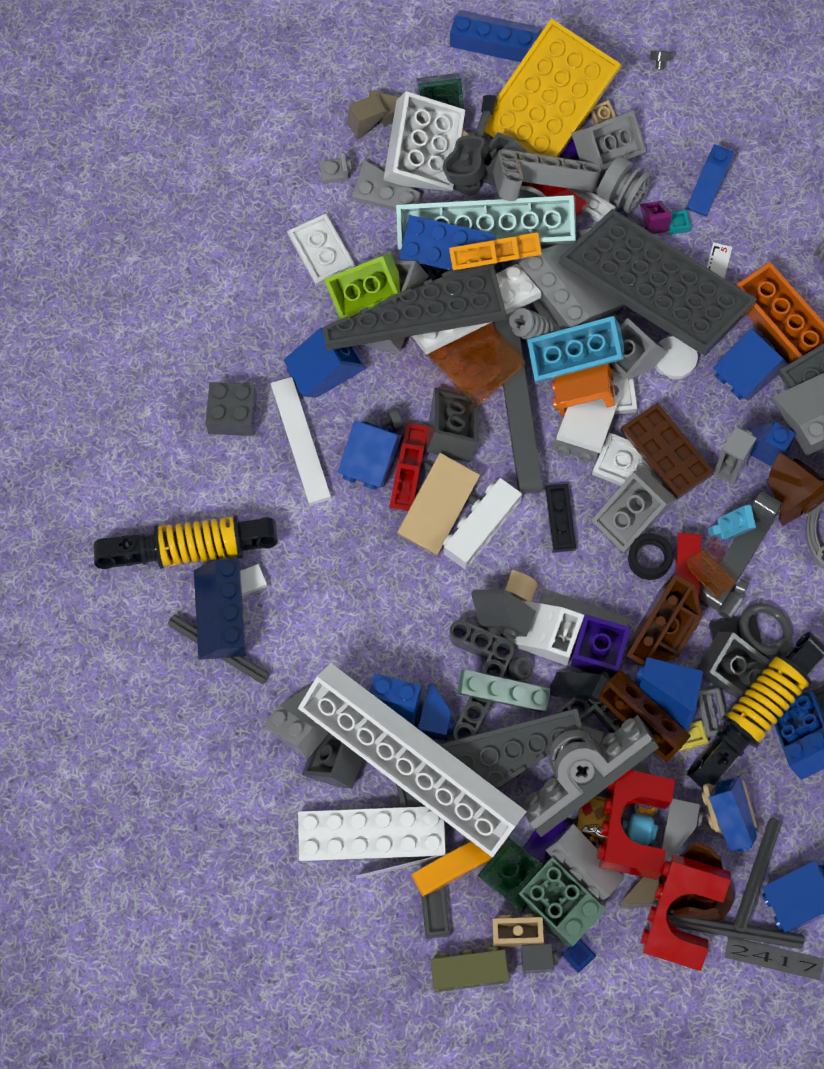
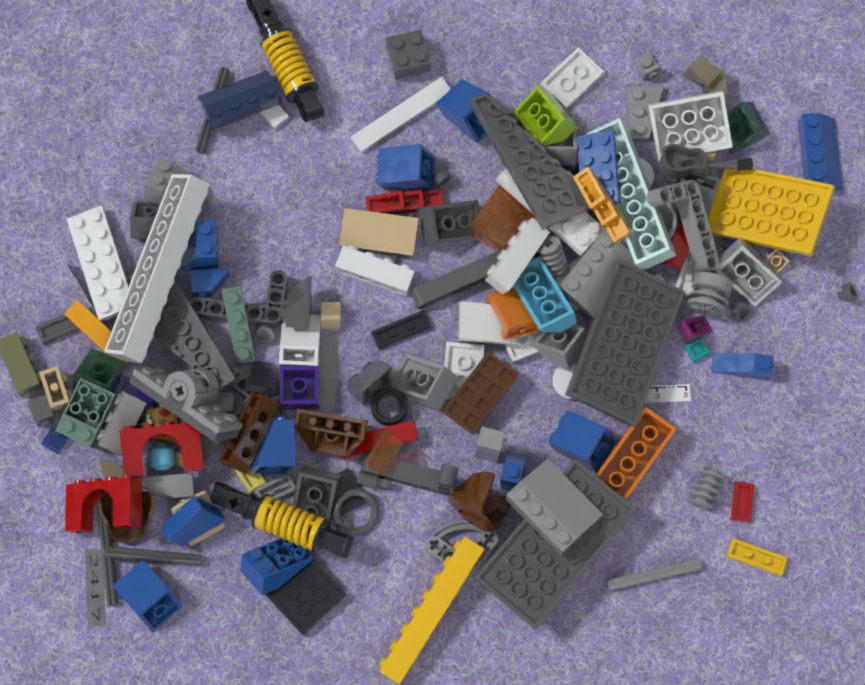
camera: 65 degrees right, 5 degrees up
(524, 358) = (516, 256): none -> white brick
(617, 563) = (370, 380): none -> dark grey slope
(649, 164) = (741, 311): none -> dark grey tile
(734, 523) = (430, 459): medium azure hinge -> none

